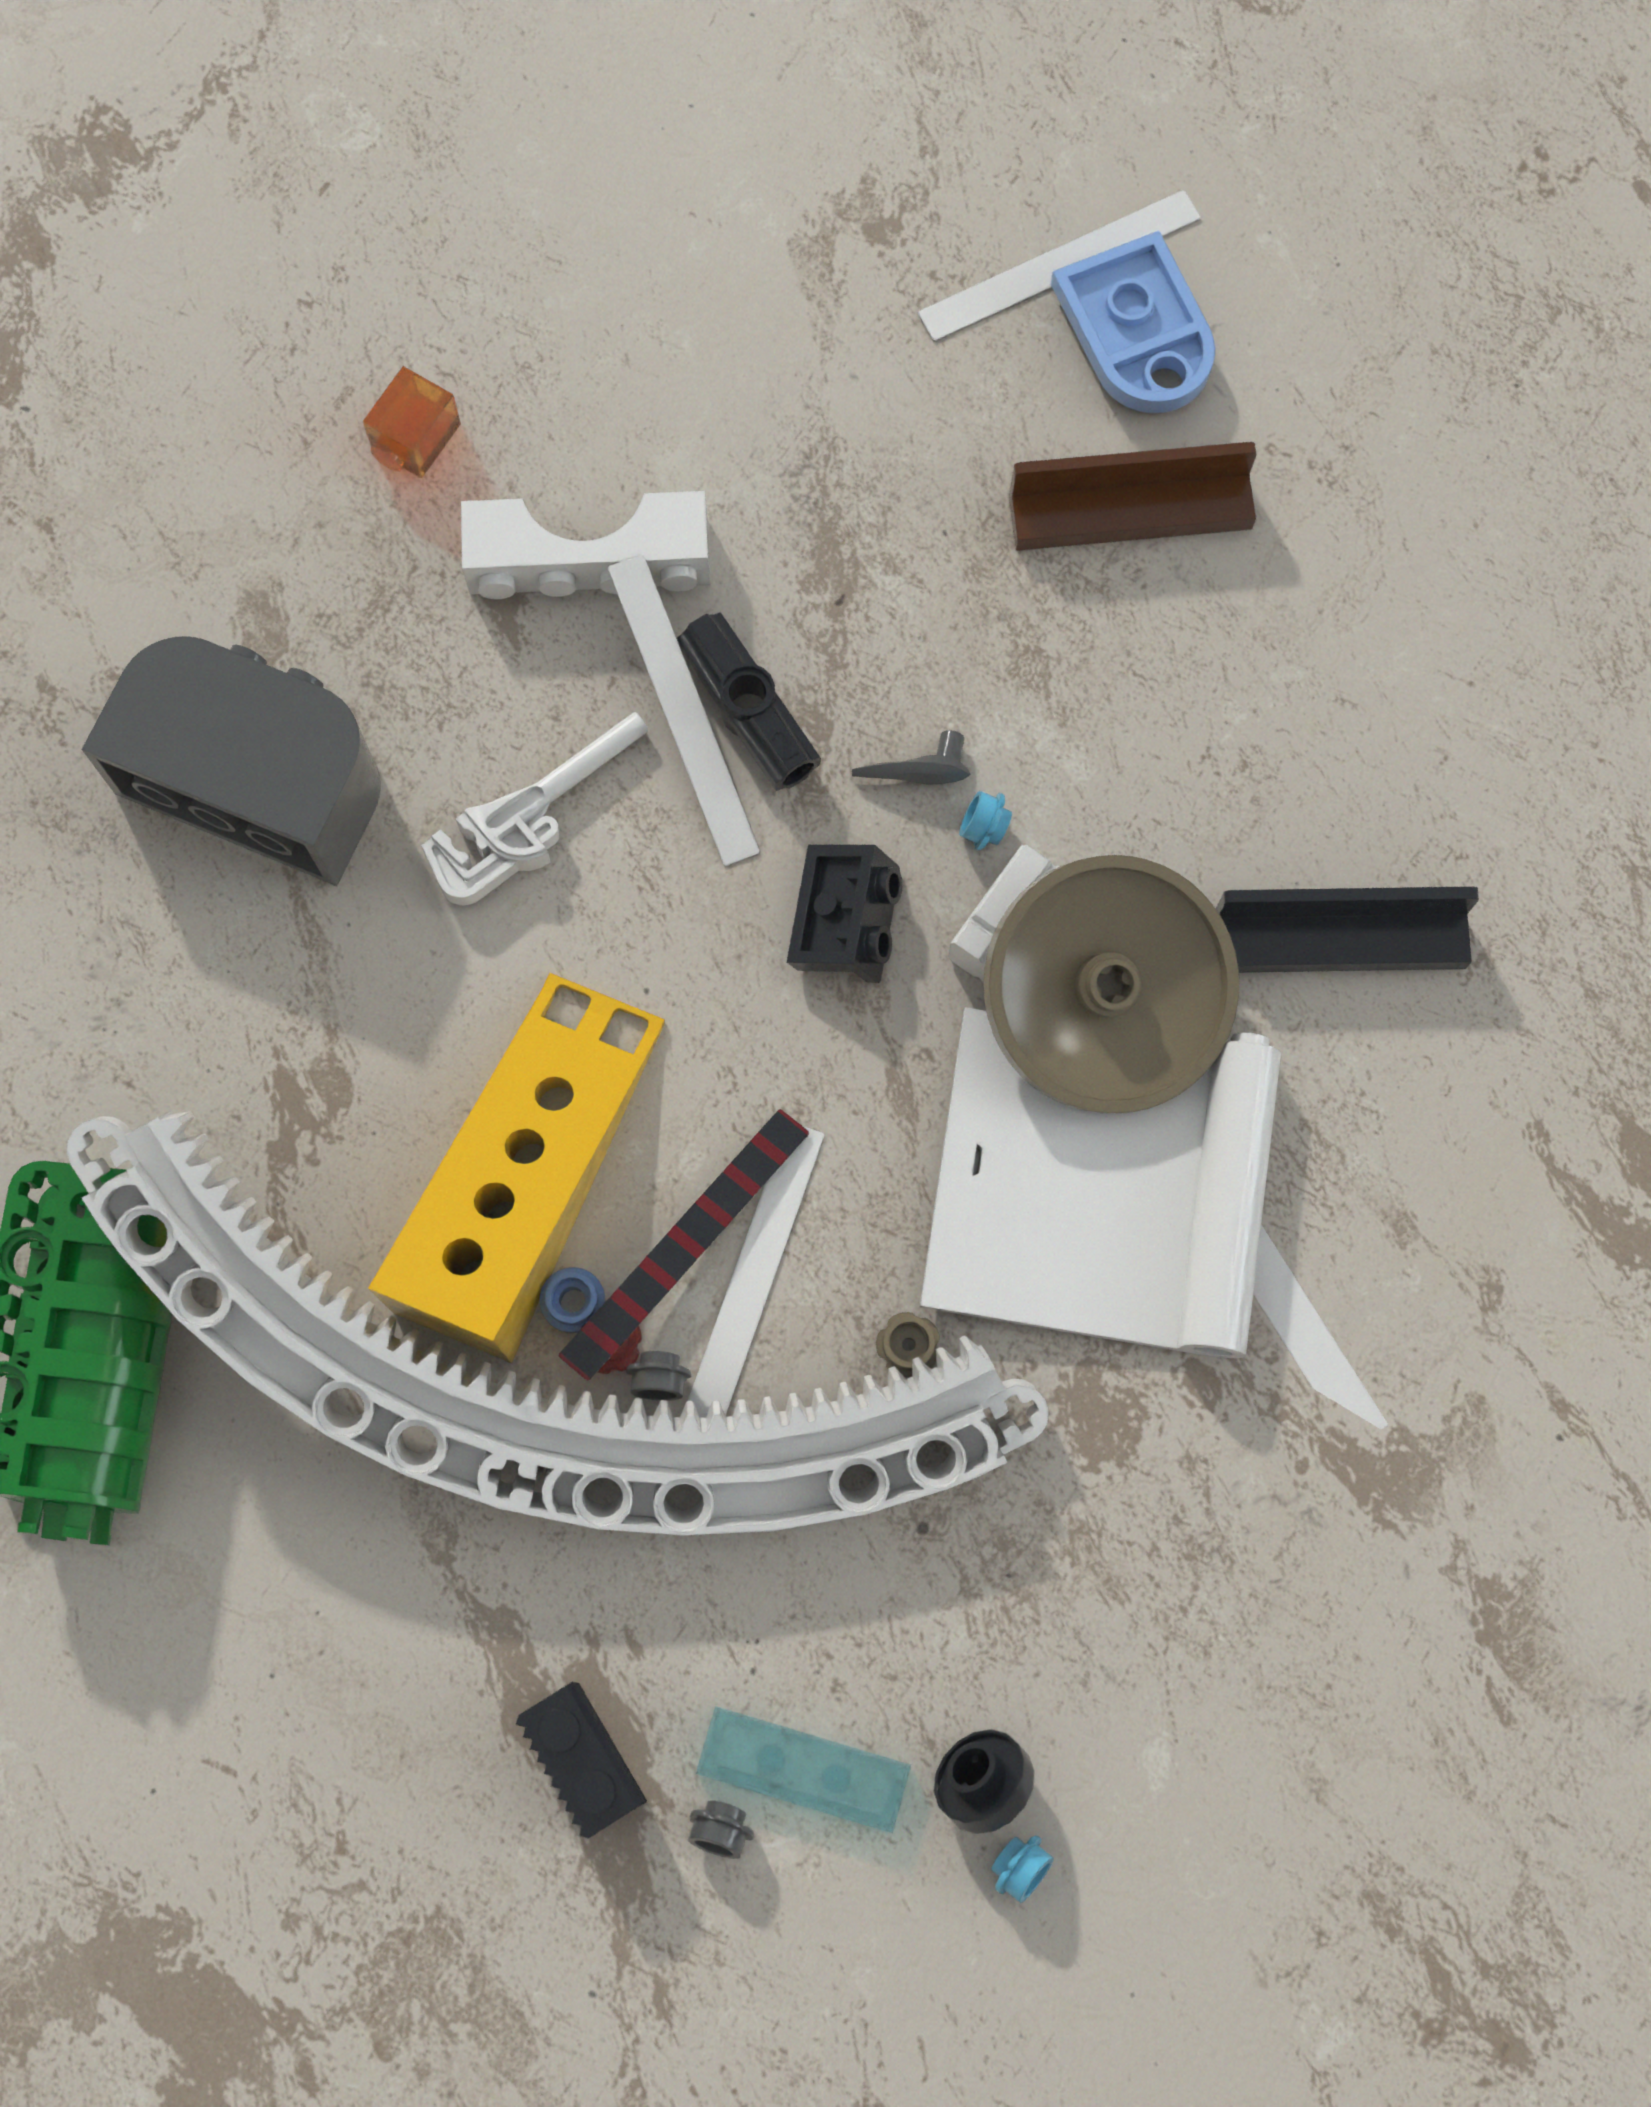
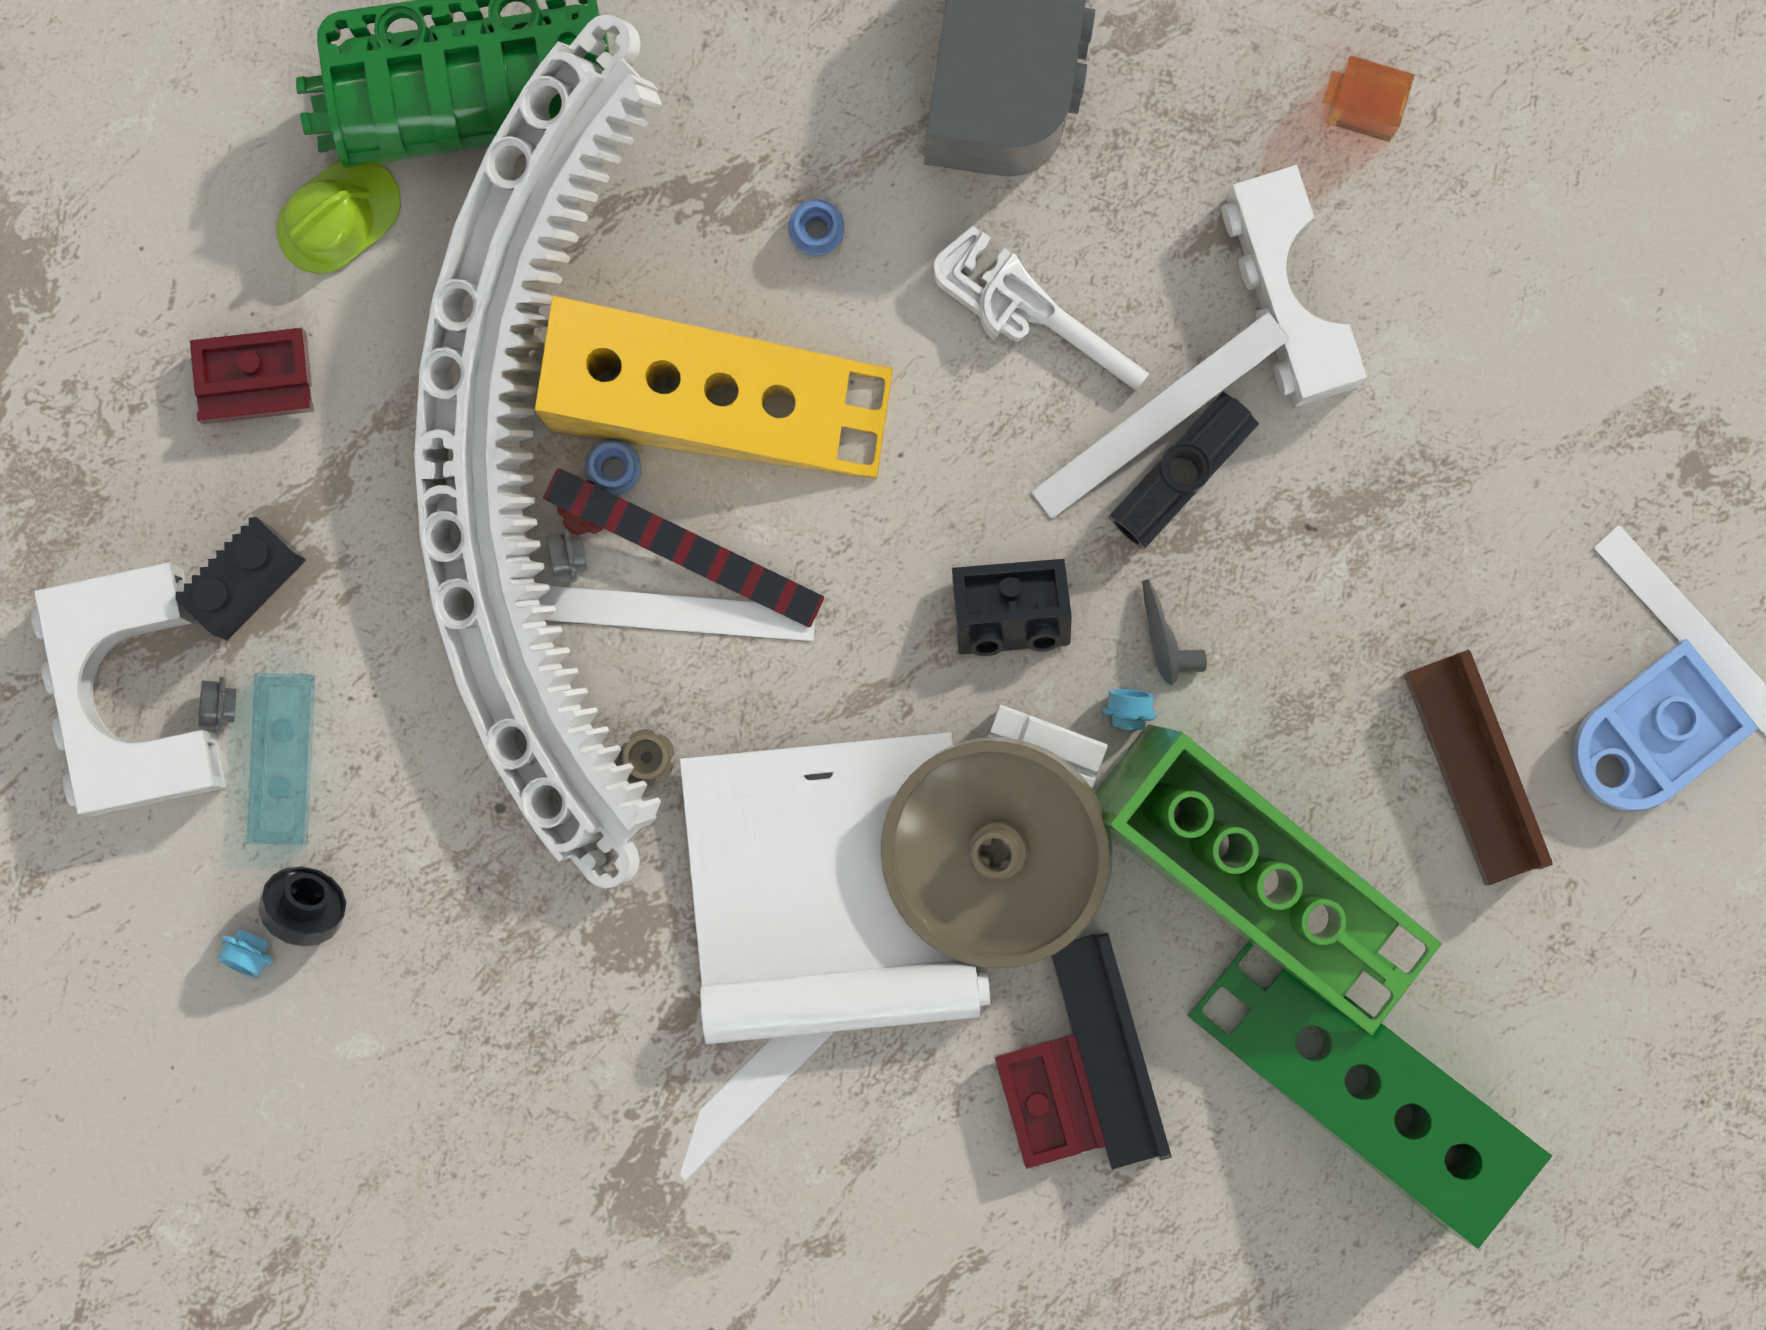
camera: 75 degrees right, 10 degrees up
(189, 1545) = (337, 216): none -> lime piece
(346, 1690) = (251, 375): none -> dark red plate
(366, 995) = (816, 211): none -> medium blue plate
(585, 1975) = (78, 630): none -> white arch
(1186, 729) = (1215, 803): none -> bright green piece
(1385, 1007) = (1049, 1101): none -> dark red plate
(1479, 649) = (1492, 1155): none -> green piece

